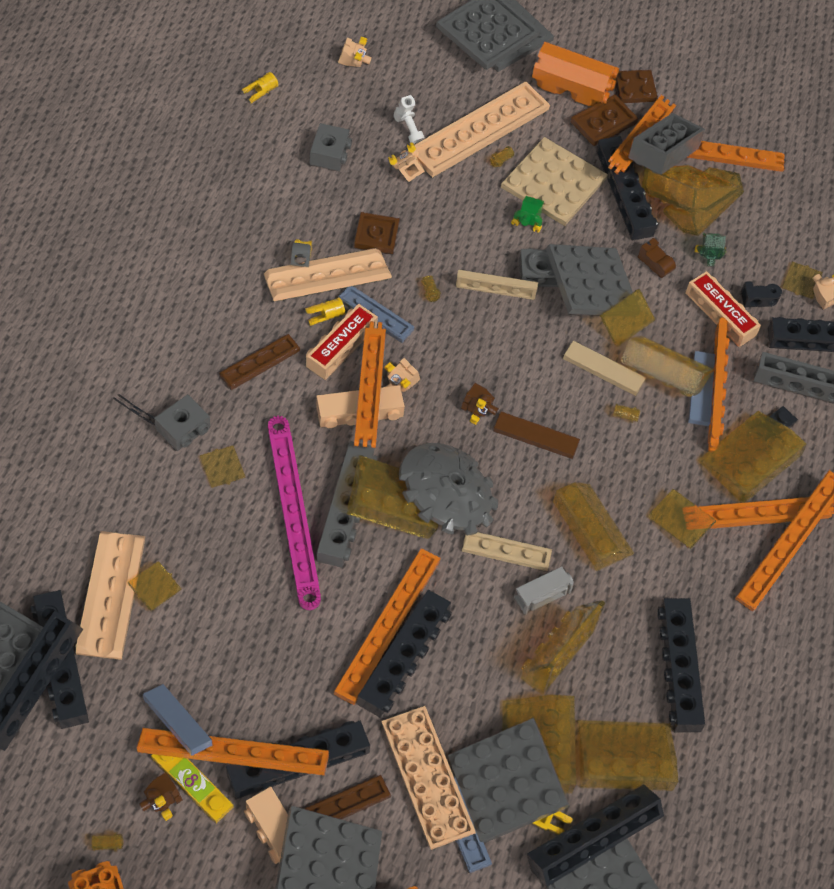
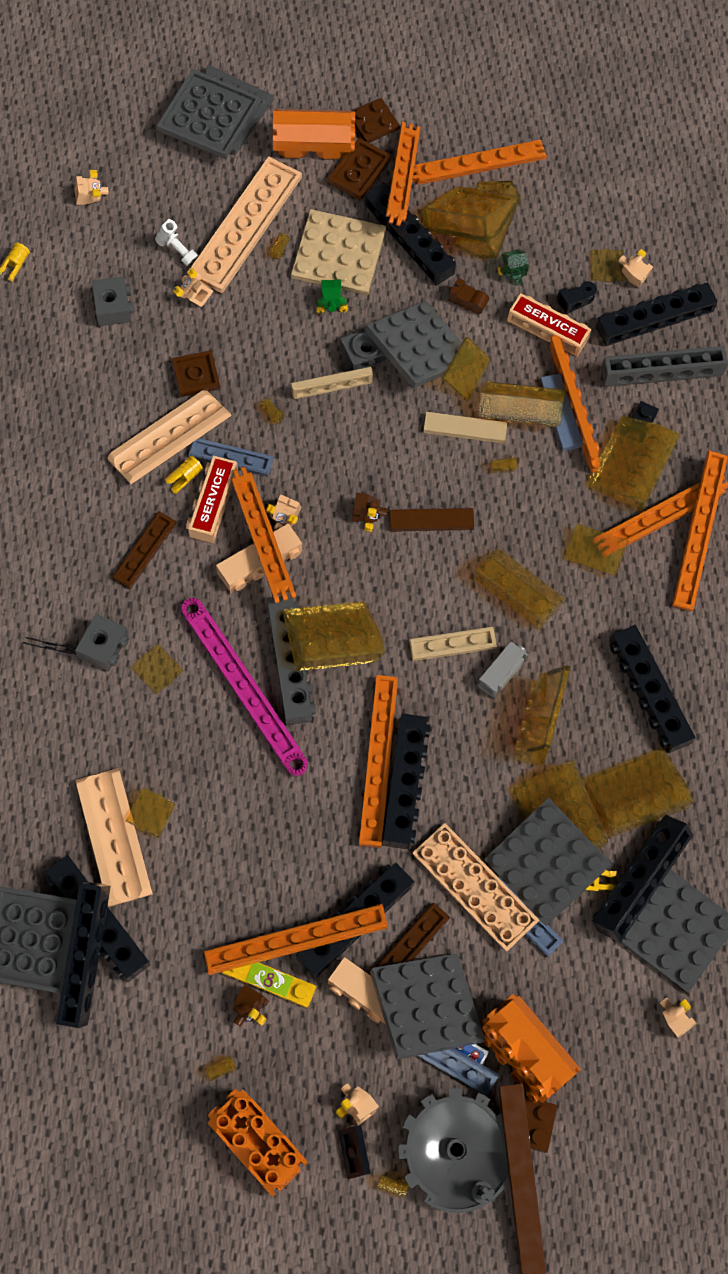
camera: 20 degrees left, 10 degrees up
(177, 719) = (232, 931): sand blue tile -> none
(301, 249) = (135, 420): dark grey leg -> none
(448, 487) = (376, 607): dark grey piece -> none
(666, 143) = (433, 176): dark grey brick -> none

